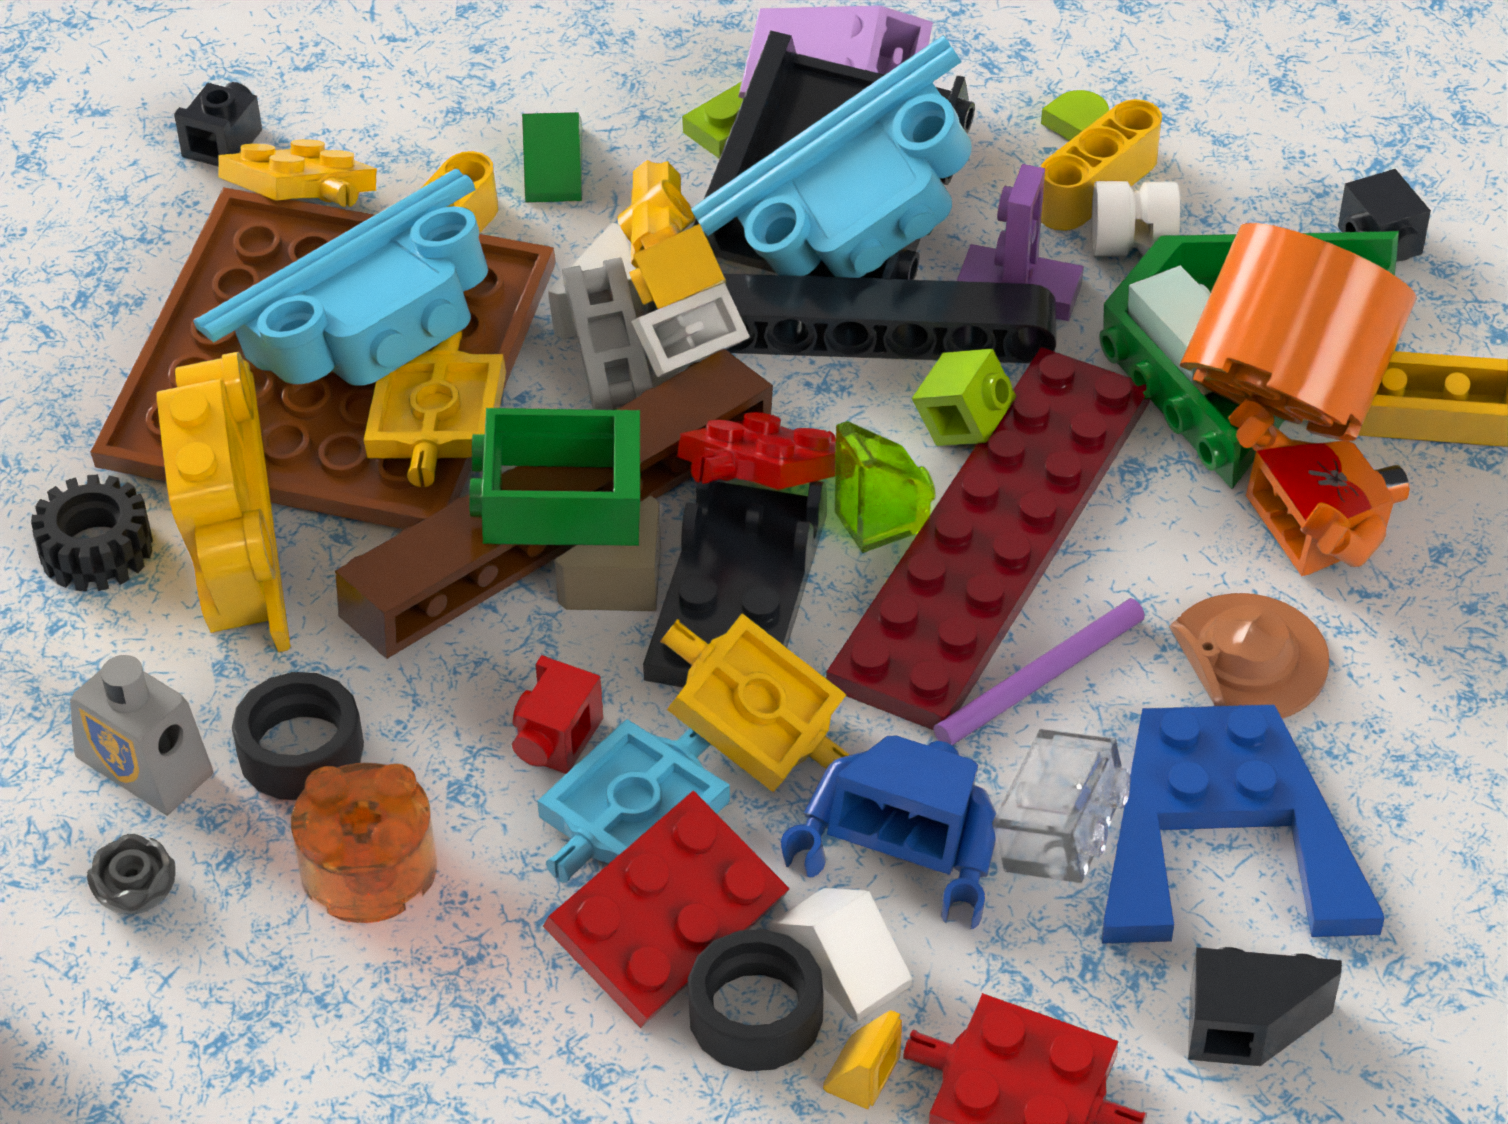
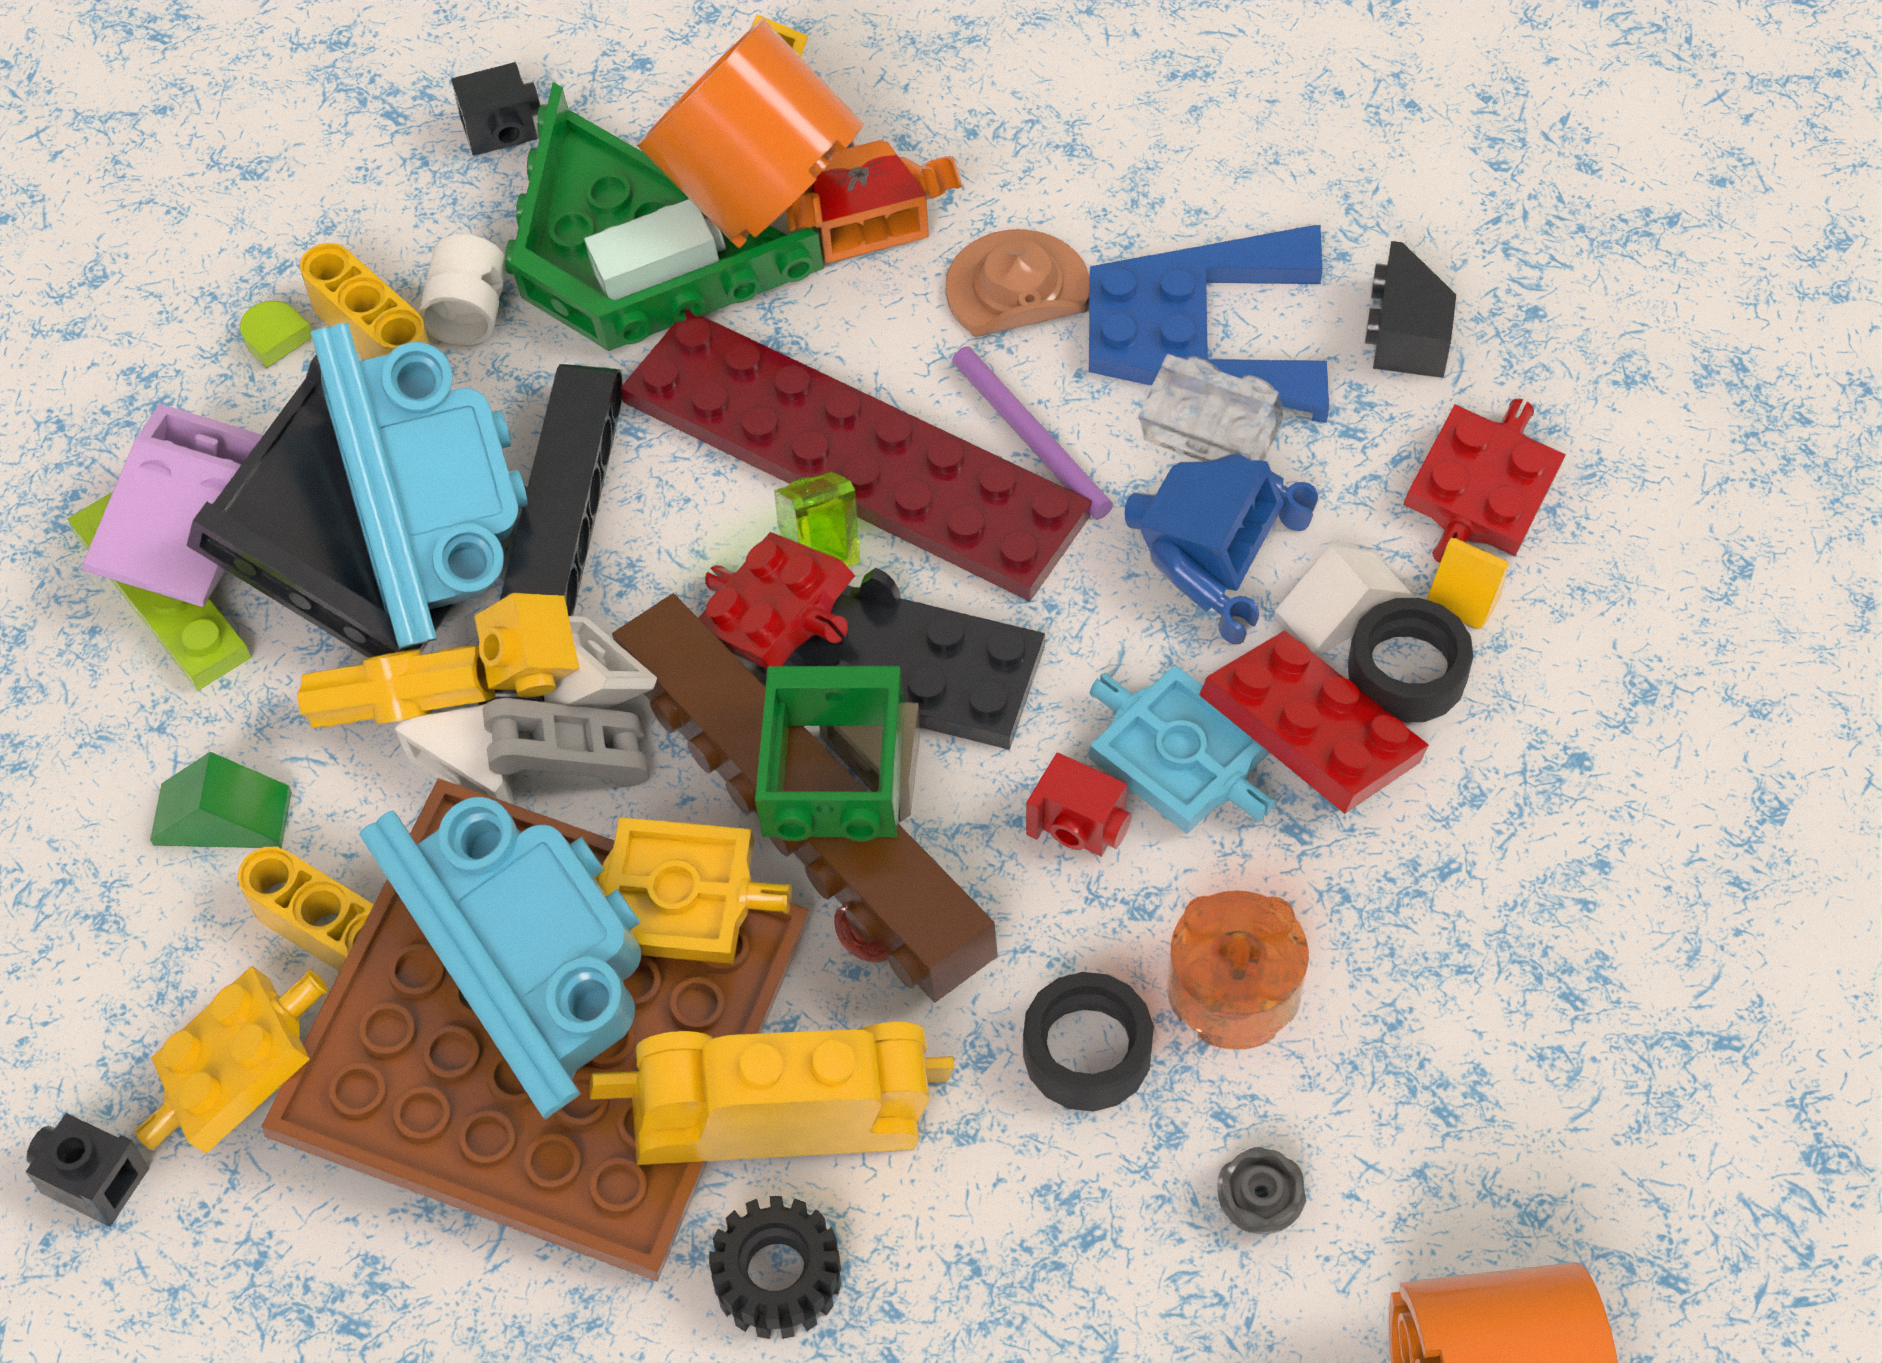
camera: 85 degrees left, 10 degrees up
(139, 734) = (1102, 1181): light grey torso -> none
(755, 700) = (1087, 630): yellow plate -> none
(964, 397) = (695, 443): lime brick -> none
(1018, 247) = (509, 371): medium lavender bracket -> none

